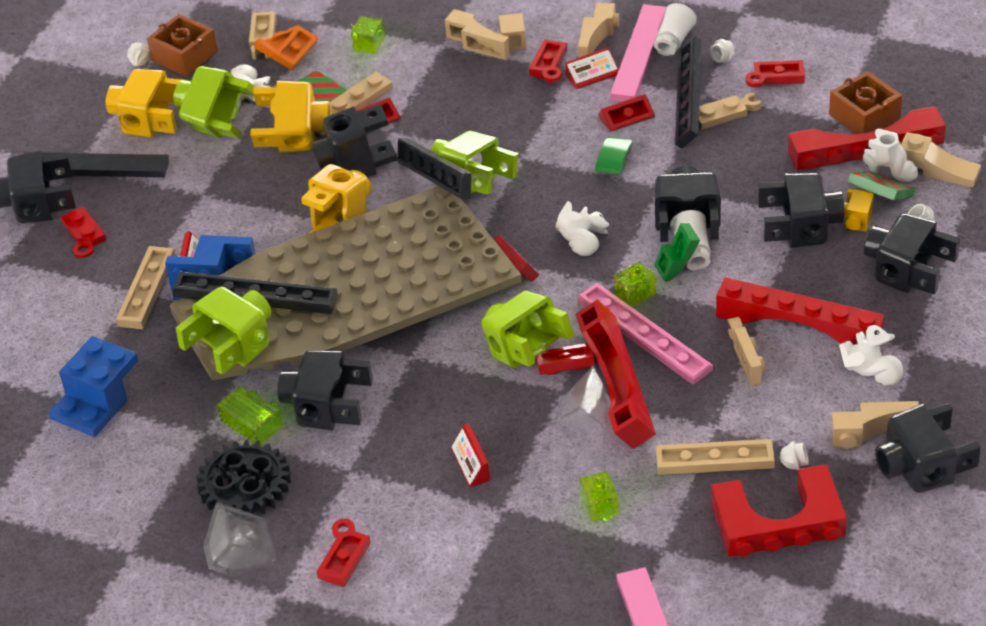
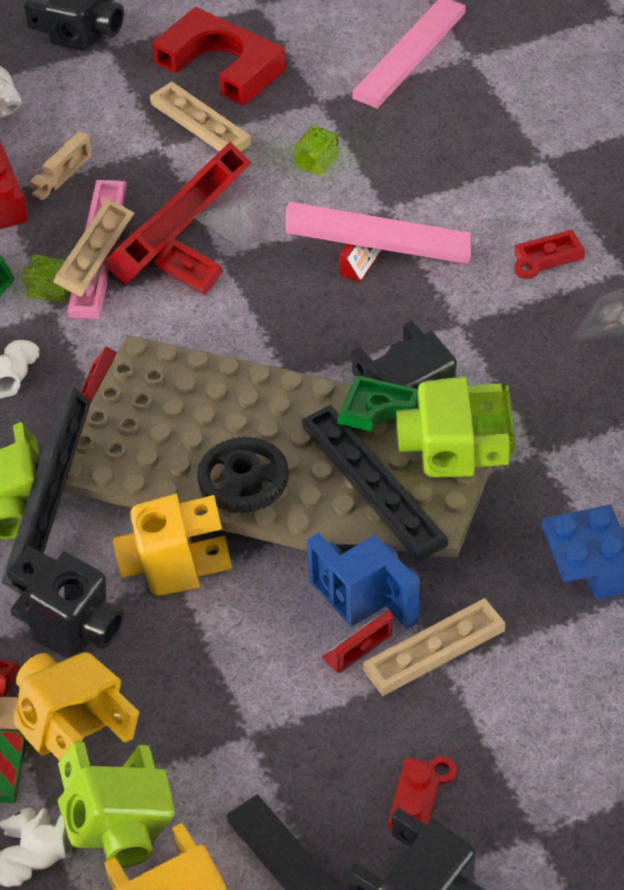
camera: 135 degrees left, 5 degrees up
(244, 478) = (548, 380): black gear -> none
(305, 327) = (375, 401): none -> green tile
(329, 236) = (244, 474): none -> black wheel
(460, 455) = (378, 232): none -> bright pink tile
(518, 334) = (194, 295): lime piece -> none
(628, 309) = (93, 247): none -> tan plate
(794, 455) = (150, 78): white plate -> none
(854, 427) = (73, 59): tan slope -> none

